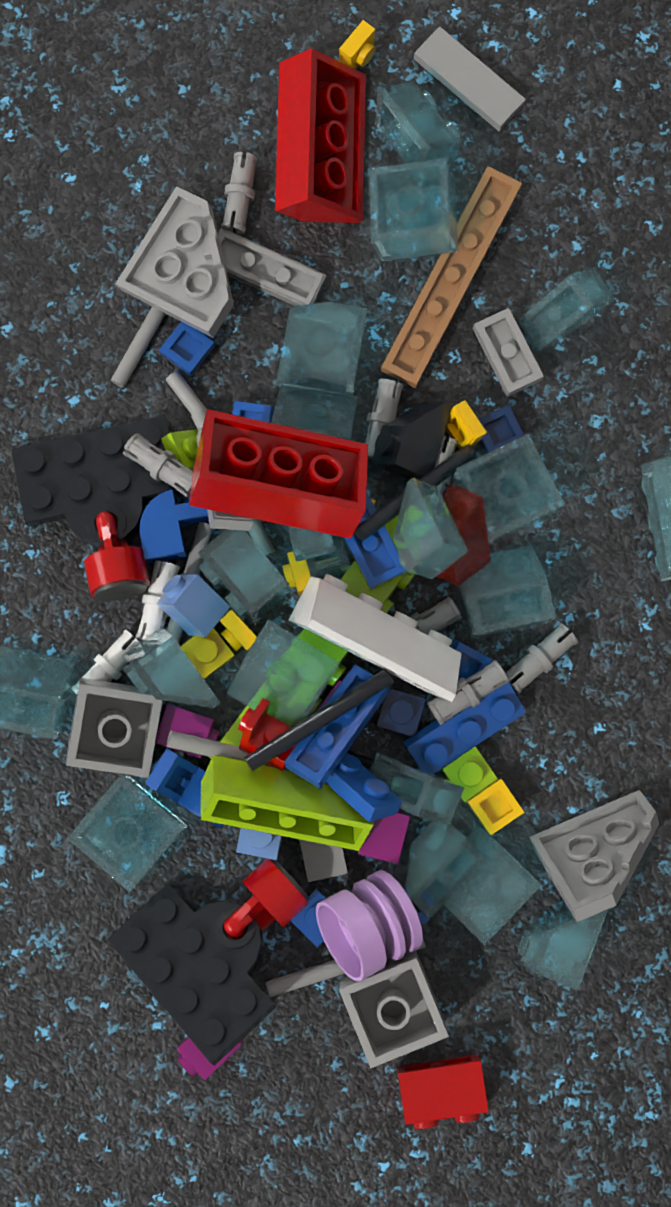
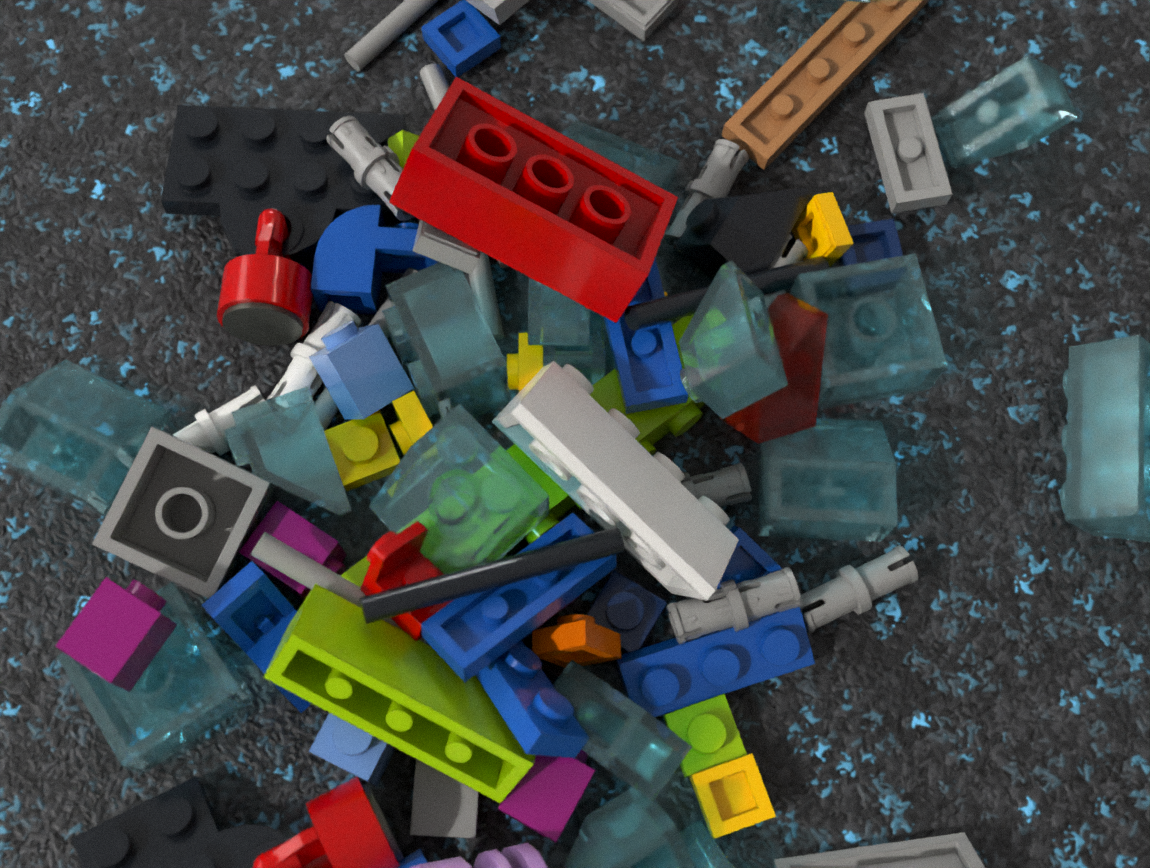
camera: 15 degrees right, 10 degrees down
(103, 815) = (118, 632): none -> magenta brick
(322, 347) = (652, 82): clear light blue slope -> none
(377, 739) = (576, 639): none -> orange plate

